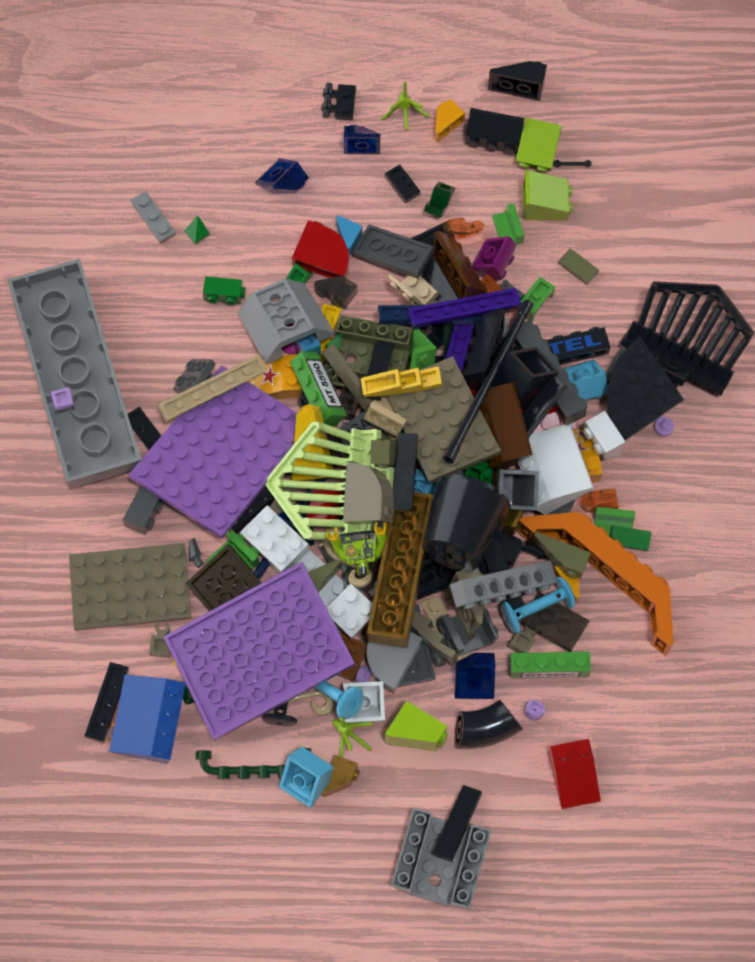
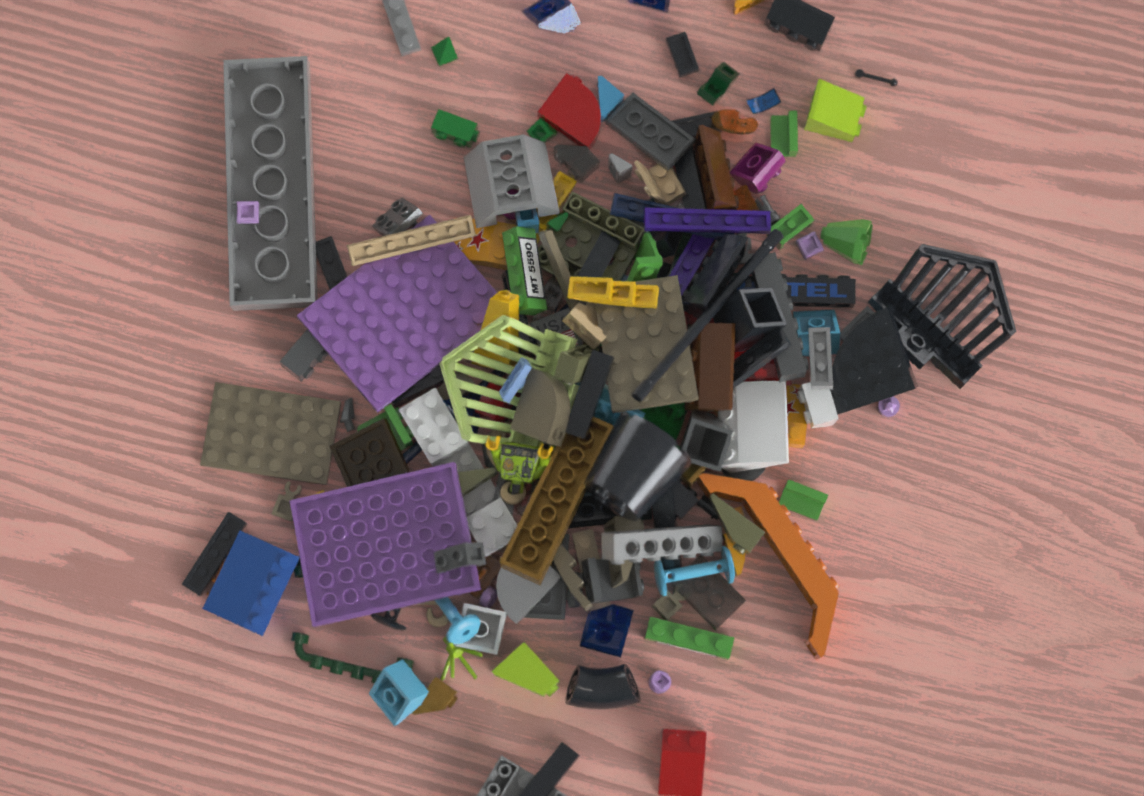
camera: 15 degrees right, 10 degrees up
(330, 636) = (459, 556): none -> dark grey bracket
(337, 478) = (515, 380): none -> light blue plate
(375, 286) = (619, 168): none -> light grey slope
(483, 205) = (764, 101): none -> clear blue sticker
(538, 144) = (844, 48): lime slope -> none
(556, 312) = (809, 245): none -> lavender tile
(578, 266) = (848, 199): olive tile -> none
(588, 296) = (848, 238): none -> bright green cone
(595, 395) = (820, 358): none -> light grey plate
(601, 498) = (795, 470): clear orange leg -> none
(632, 537) = (816, 521): green tile -> none

